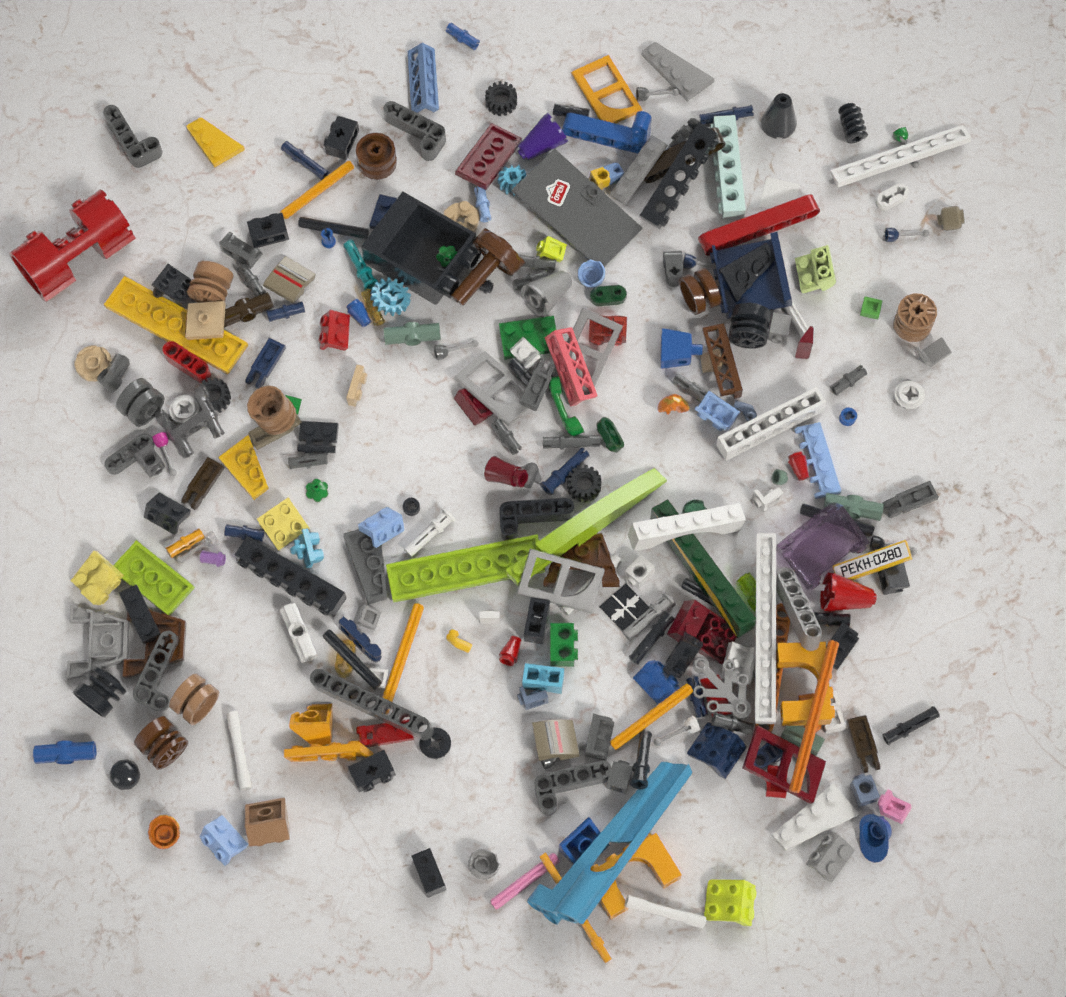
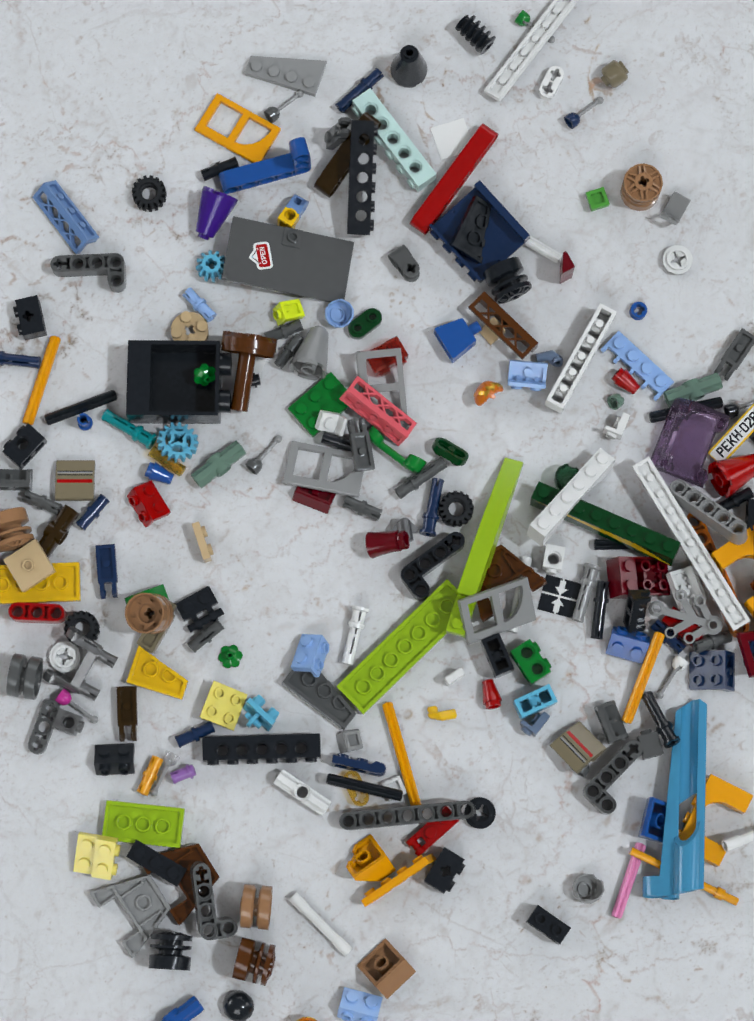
camera: 35 degrees left, 10 degrees up
(376, 156) = (68, 324): reddish brown wheel -> none
(382, 206) = (115, 366): dark blue plate -> none
(409, 501) = (317, 617): black bush -> none
(462, 36) = (73, 152): blue pin -> none
(488, 156) = (175, 256): tile -> none
(638, 169) = (318, 190): light grey plate -> none
(689, 387) = (490, 366): dark grey axle -> none
(690, 262) = (416, 248): dark blue hinge -> none
(699, 291) = (445, 274): reddish brown wheel -> none
(748, 586) = (652, 515): clear neon green piece -> none
(779, 328) = (532, 265): light grey brick -> none
(816, 270) = (529, 193): yellowish green brick -> none
(848, 380) = (618, 277): dark grey pin -> none

